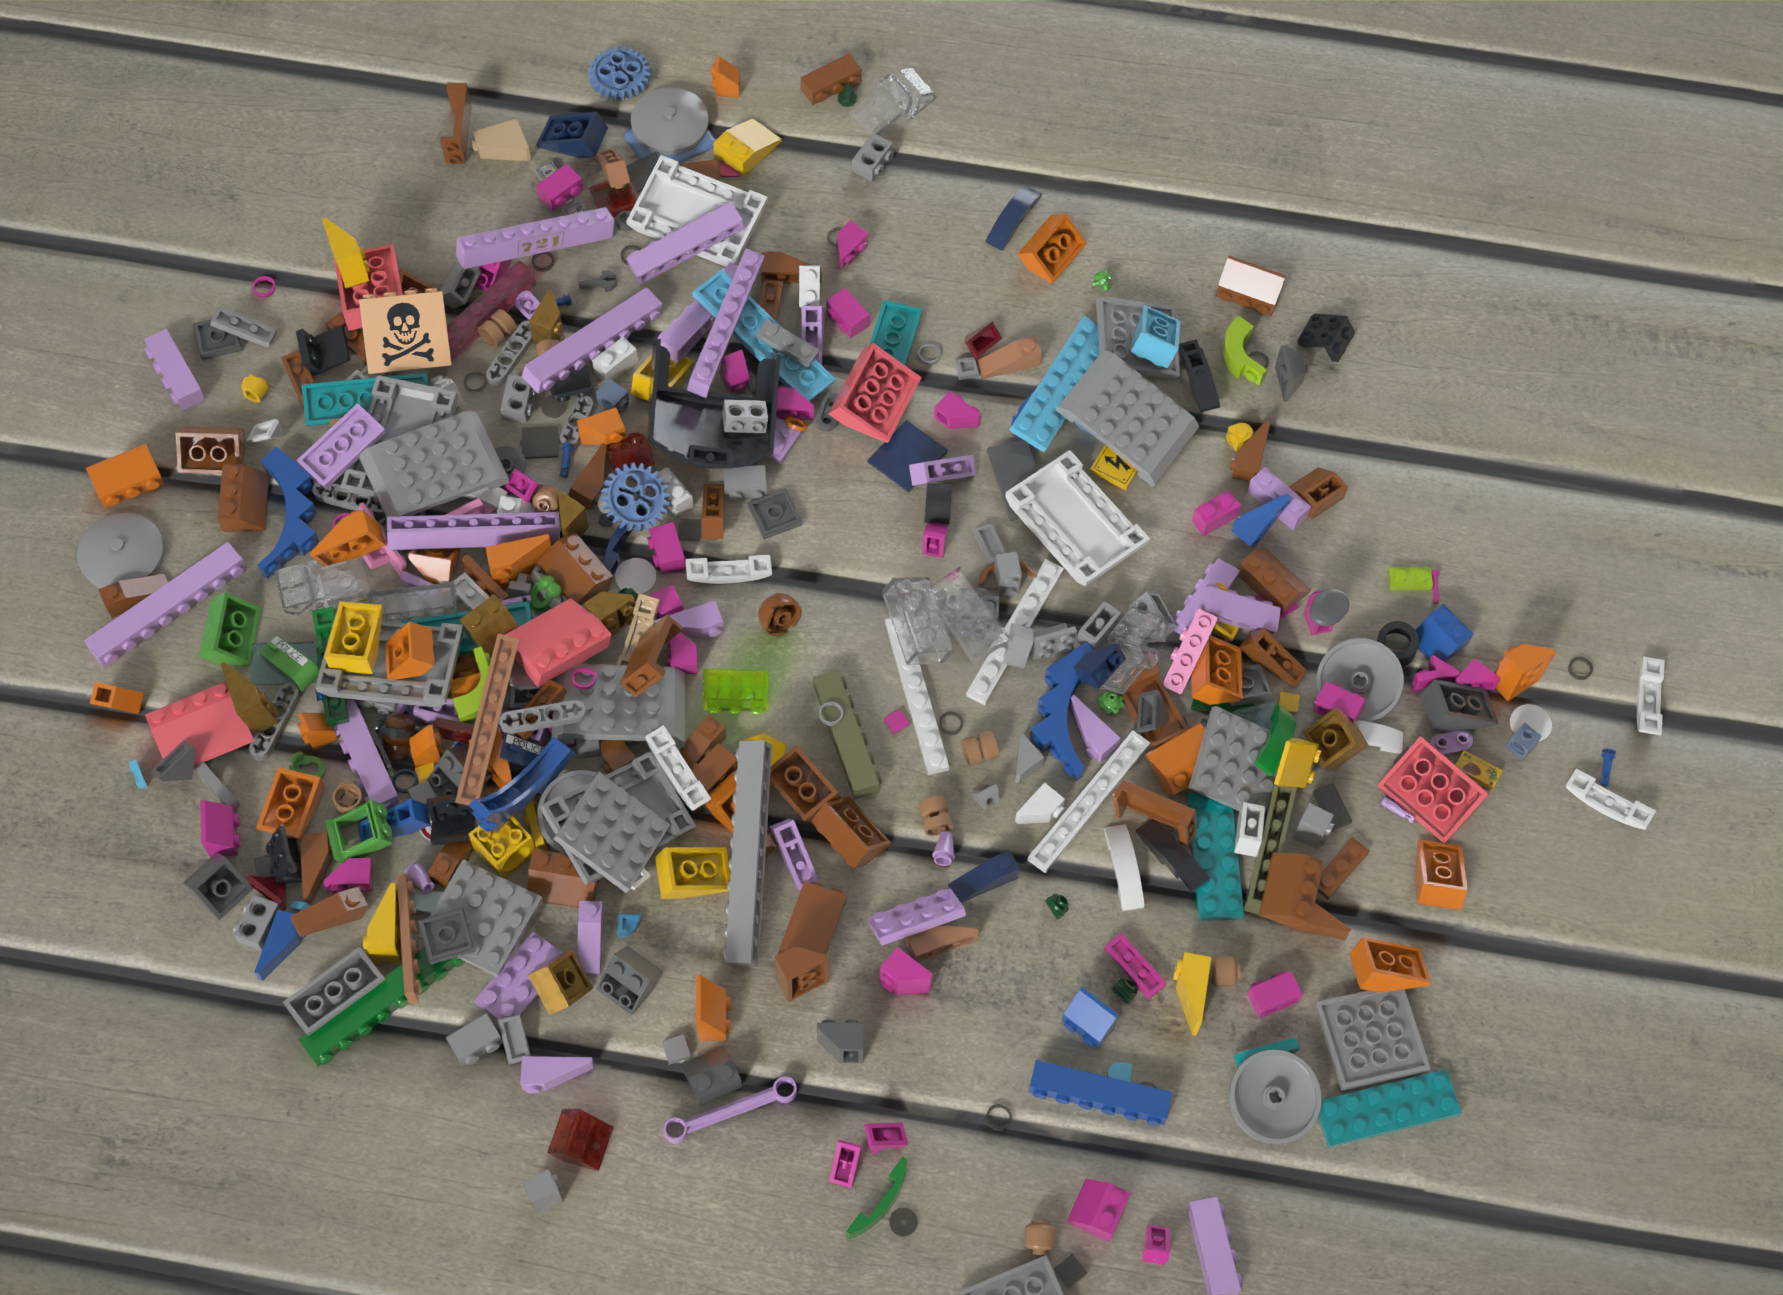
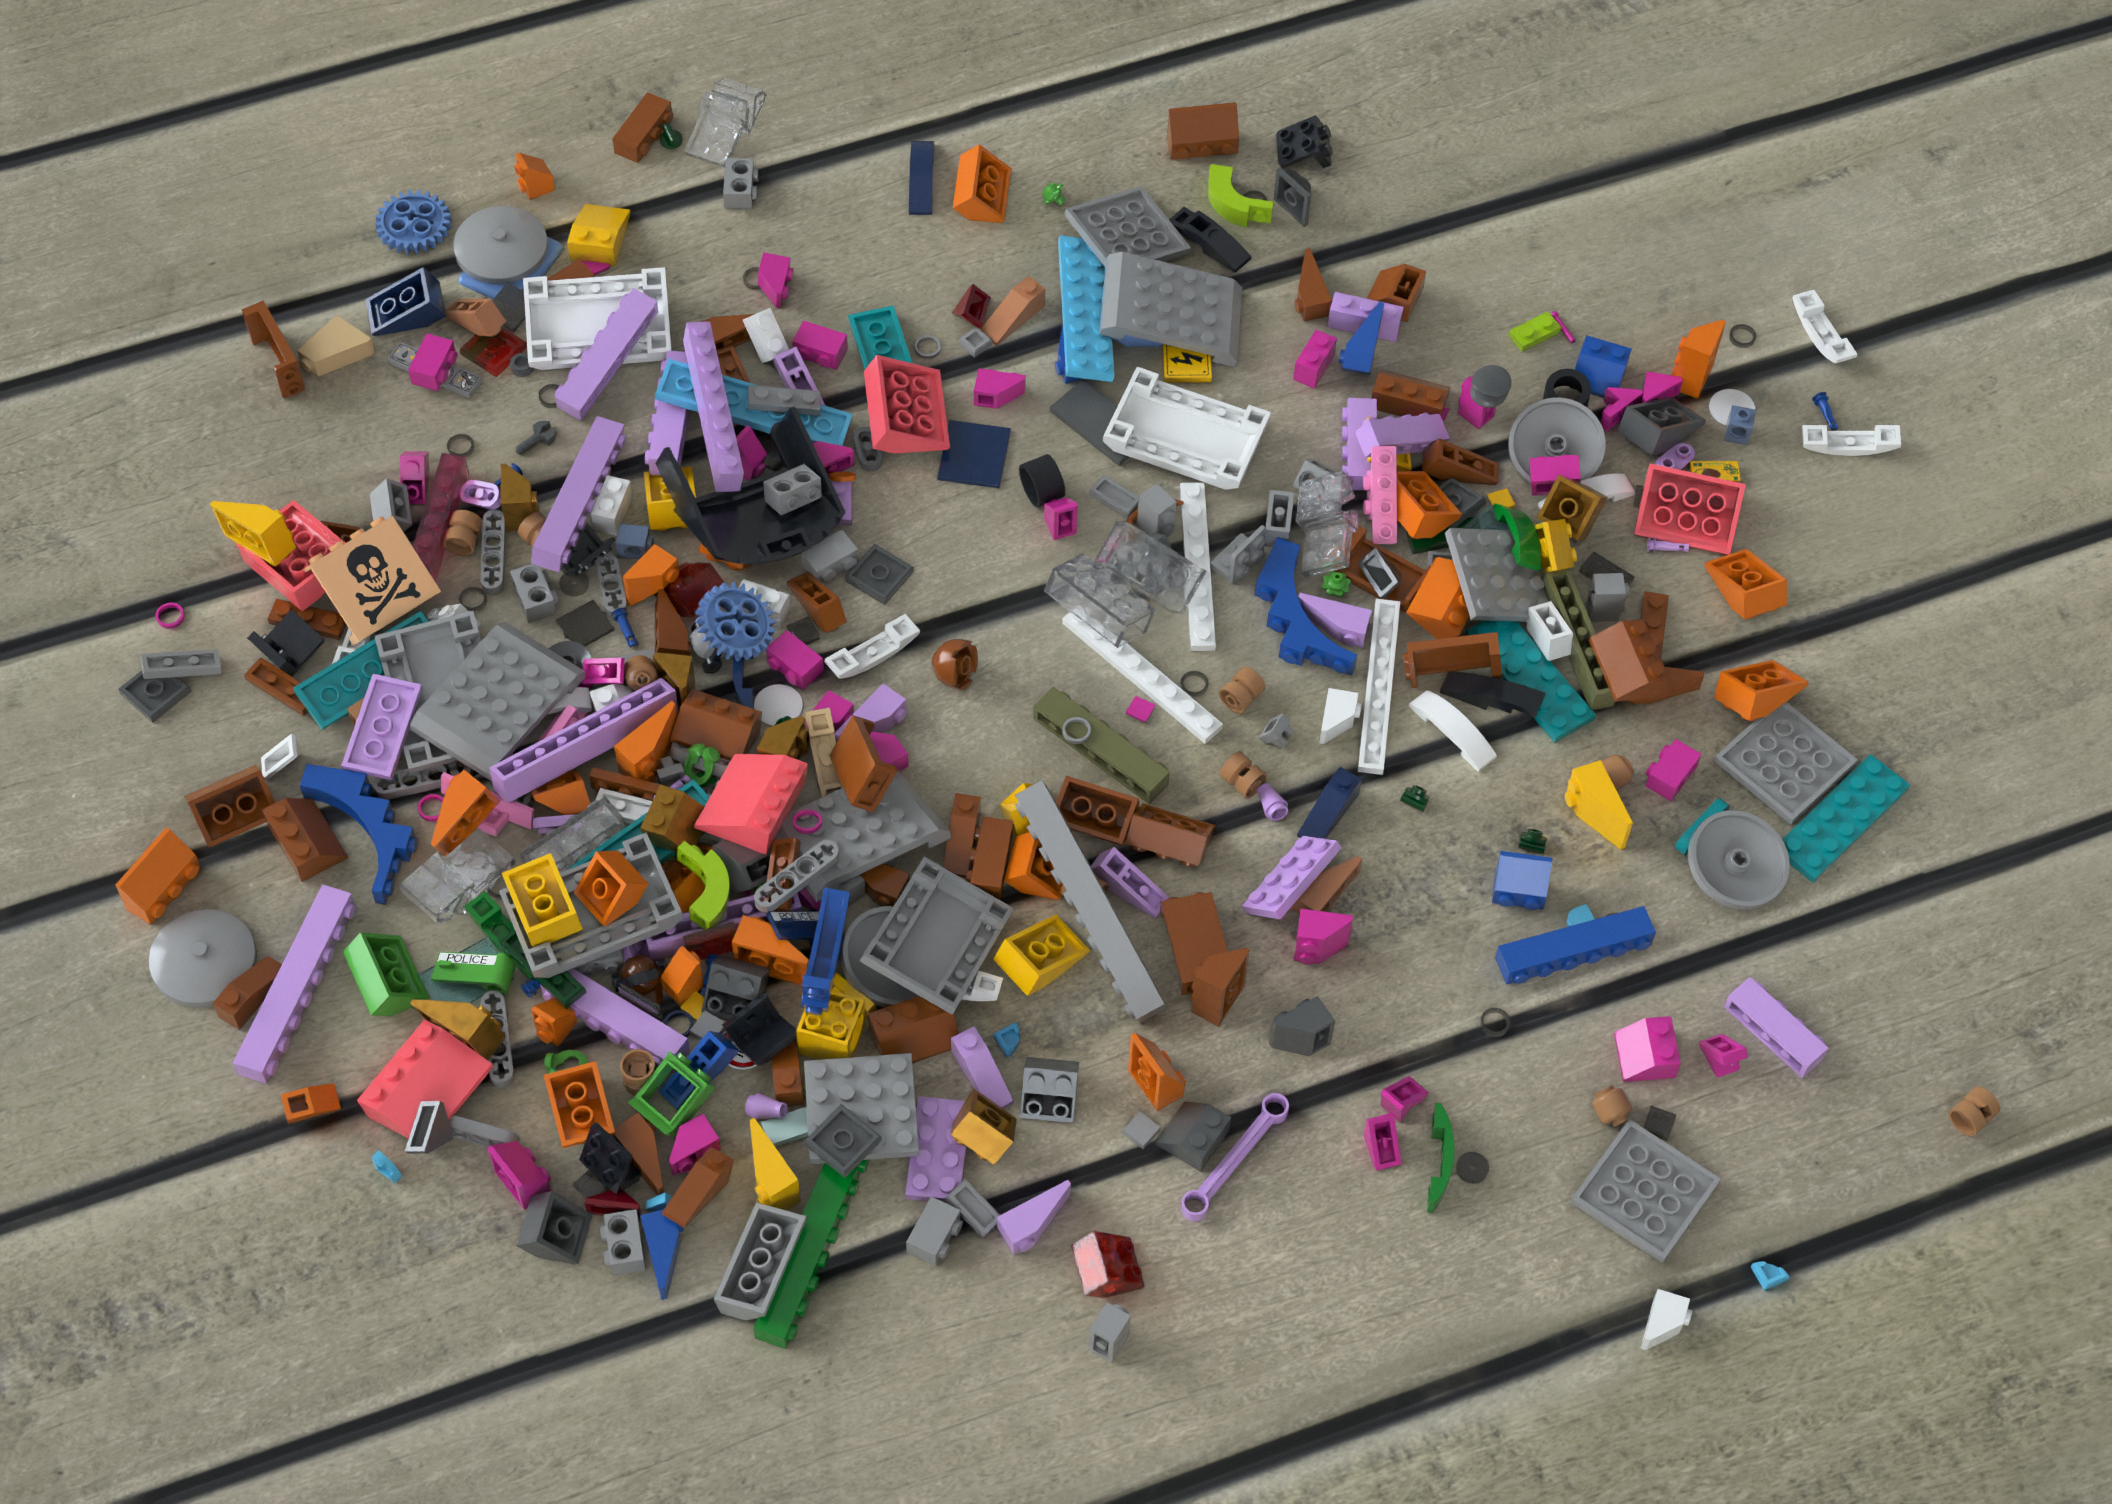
camera: 30 degrees left, 5 degrees down
(174, 370) = (131, 745): lavender brick -> none
(254, 388) = (236, 720): yellow plate -> none
(409, 946) = (808, 1173): nougat plate -> none
(487, 719) = (742, 909): nougat plate -> none
(534, 237) = (445, 421): lavender brick -> none
(612, 832) = (944, 950): light grey plate -> none
(676, 768) = (962, 861): white slope -> none
(736, 690) = (964, 758): clear neon green slope -> none
(942, 470) = (1021, 448): lavender slope -> none
(1019, 646) = (1218, 575): light grey slope -> none
(1028, 759) = (1292, 676): light grey slope -> none
(1099, 665) = (1308, 550): dark blue slope -> none
(1135, 966) = (1527, 813): dark pink plate -> none
(1156, 337) = (1148, 221): medium azure slope -> none
(1238, 435) = (1286, 277): yellow plate -> none

